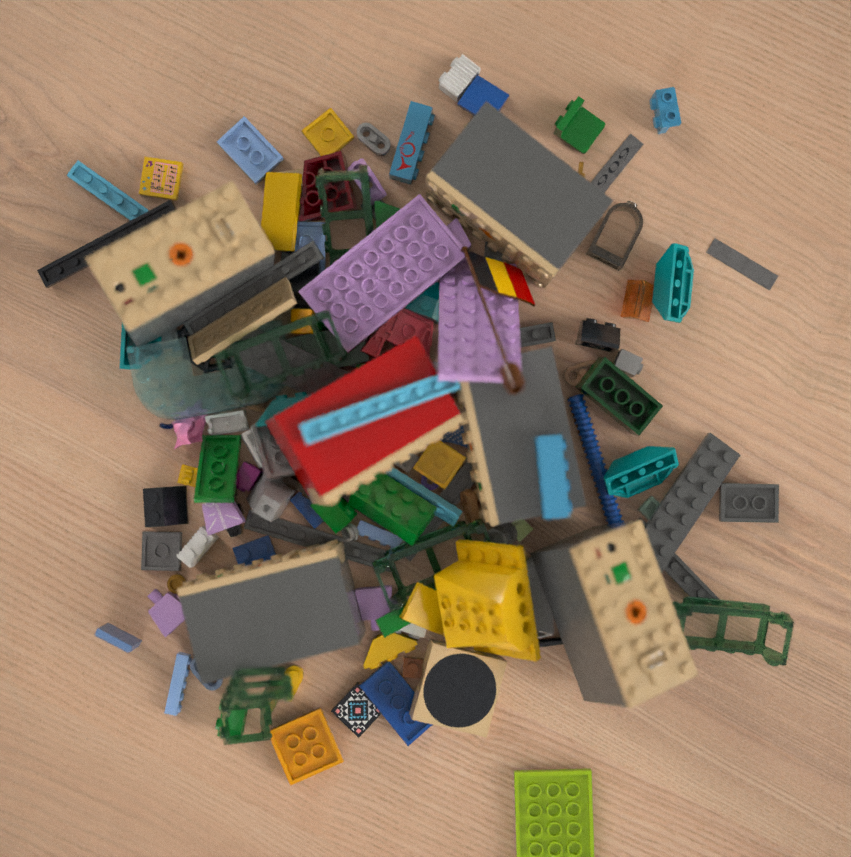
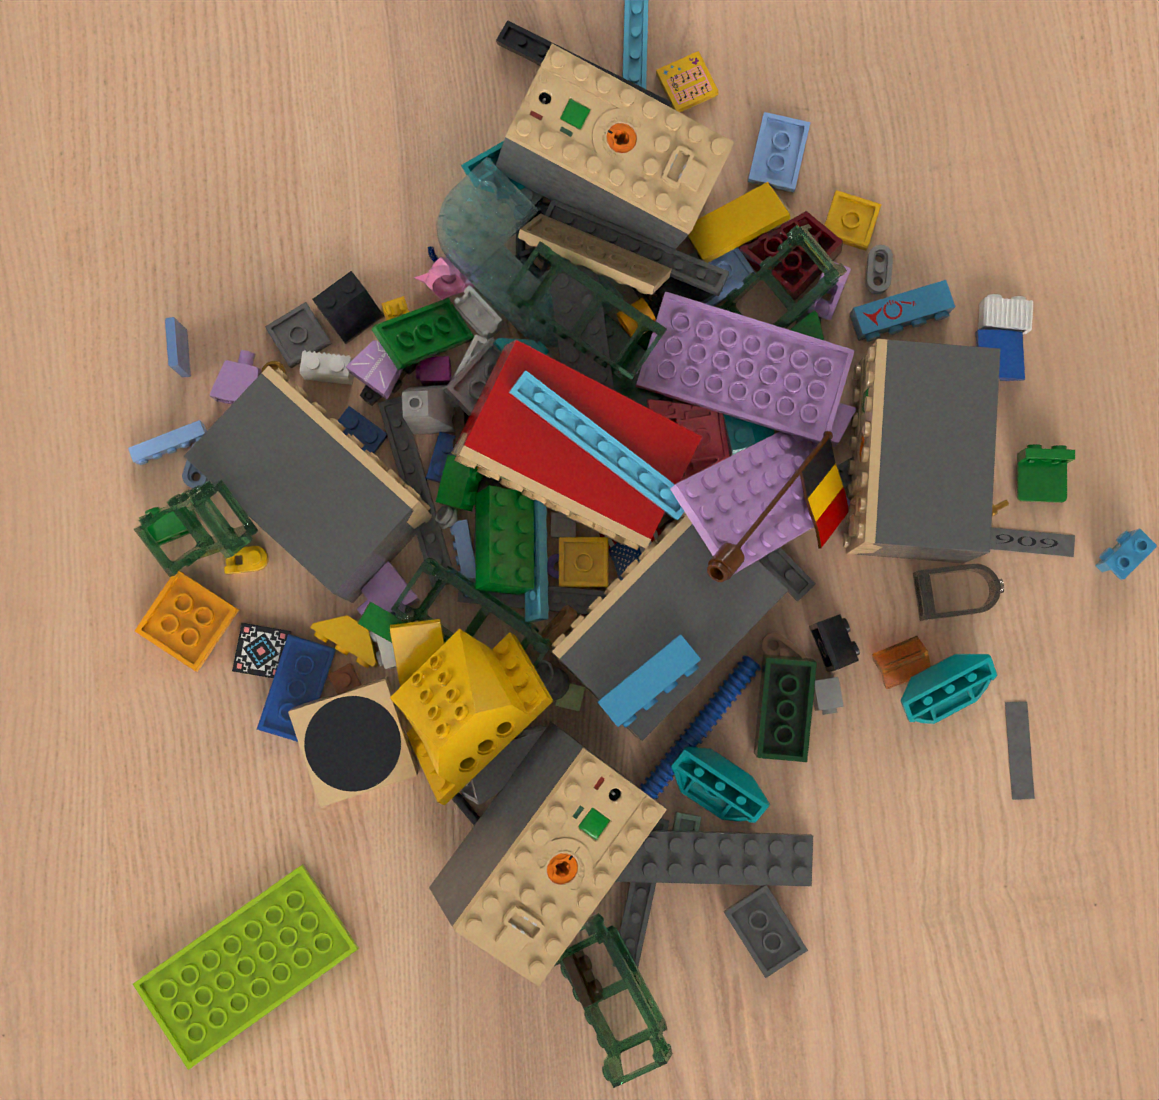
camera: 60 degrees right, 5 degrees down
(705, 639) = (586, 986): none -> dark brown plate

